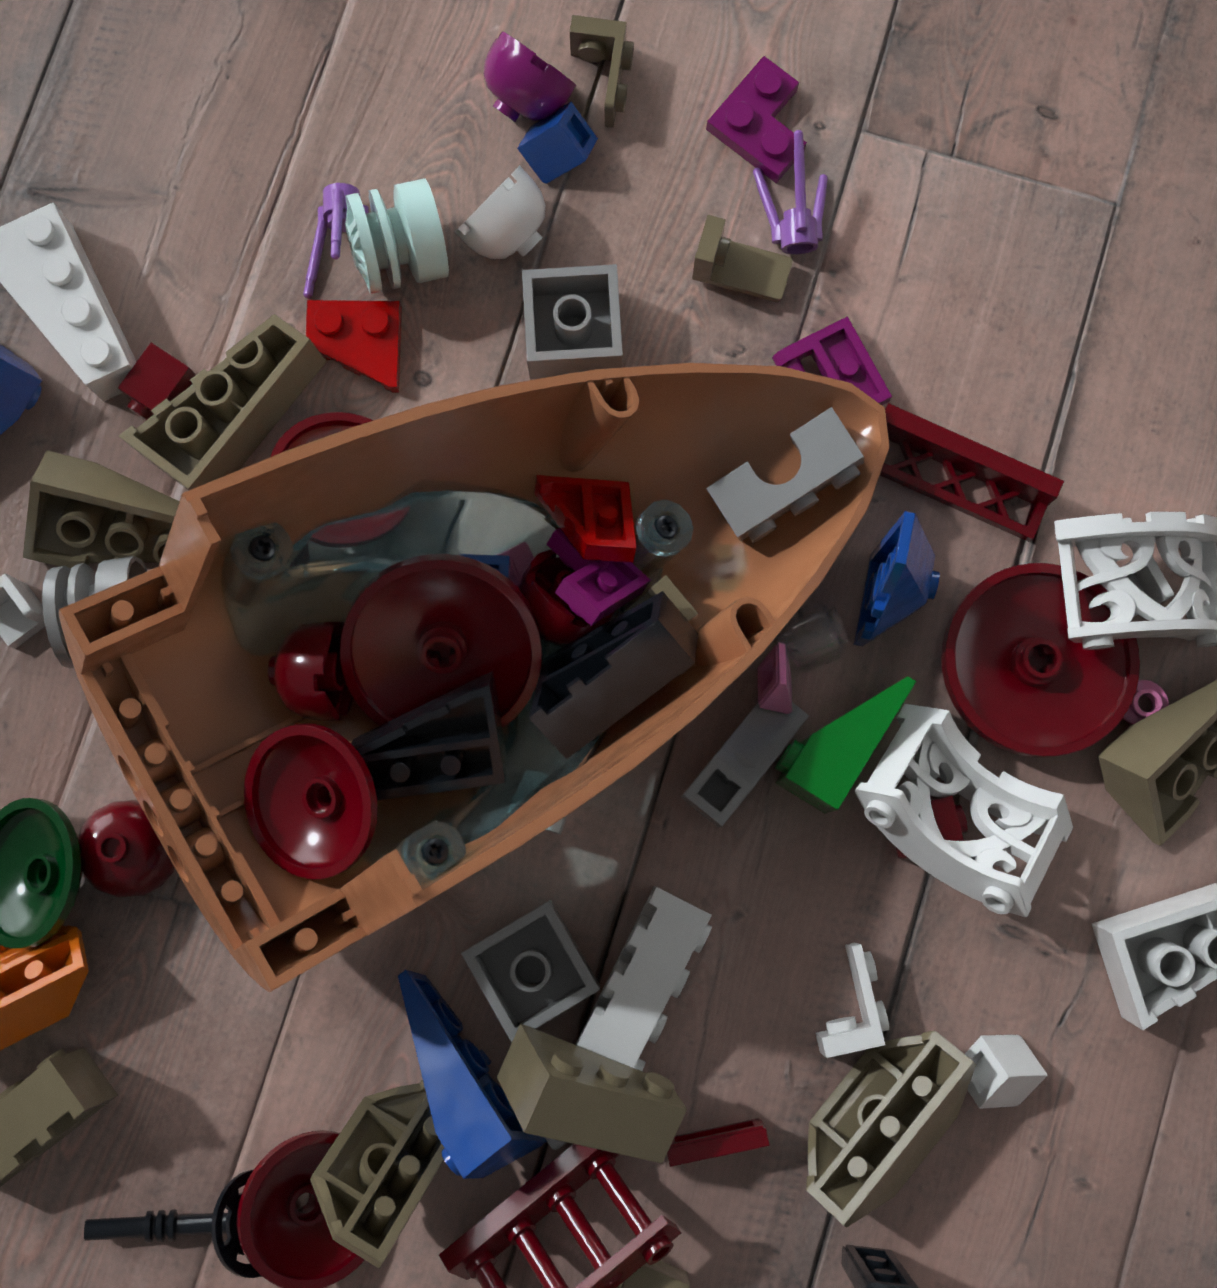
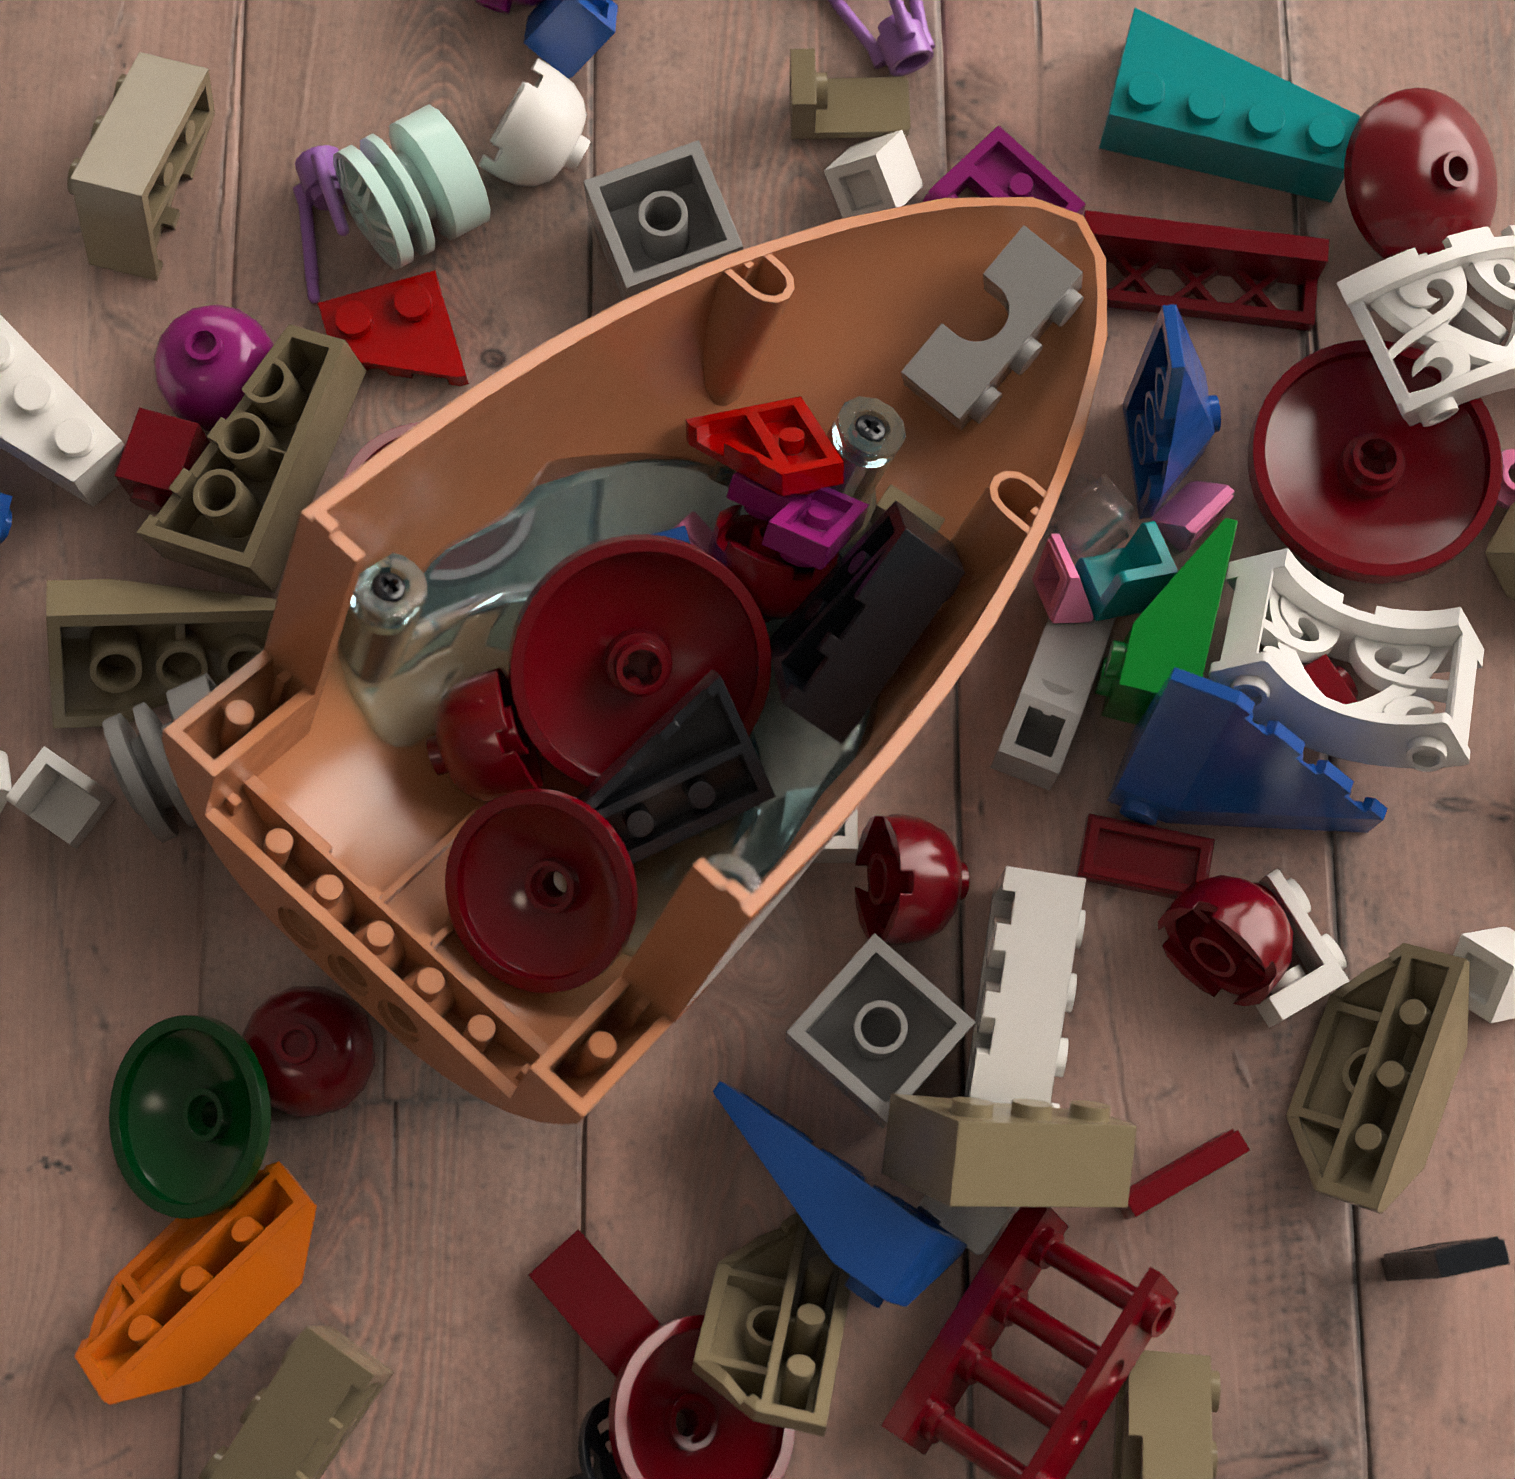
camera: 20 degrees left, 5 degrees down
(210, 153) = (136, 162): none -> dark tan wedge
(214, 319) = (207, 361): none -> magenta cylinder
(270, 1095) = (594, 1300): none -> dark red slope
(592, 866) = (910, 878): none -> dark red cylinder
(742, 328) = (874, 176): none -> white panel
(771, 900) = (1142, 857): none -> dark red tile
(812, 981) = (1229, 938): none -> dark red cylinder
(827, 688) = (1128, 576): none -> teal panel
(831, 851) = (1209, 764): none -> blue slope
(892, 653) = (1192, 512): none -> bright pink slope
(1018, 359) = (1221, 115): none -> teal wedge
(1134, 449) = (1418, 172): none -> dark red dish

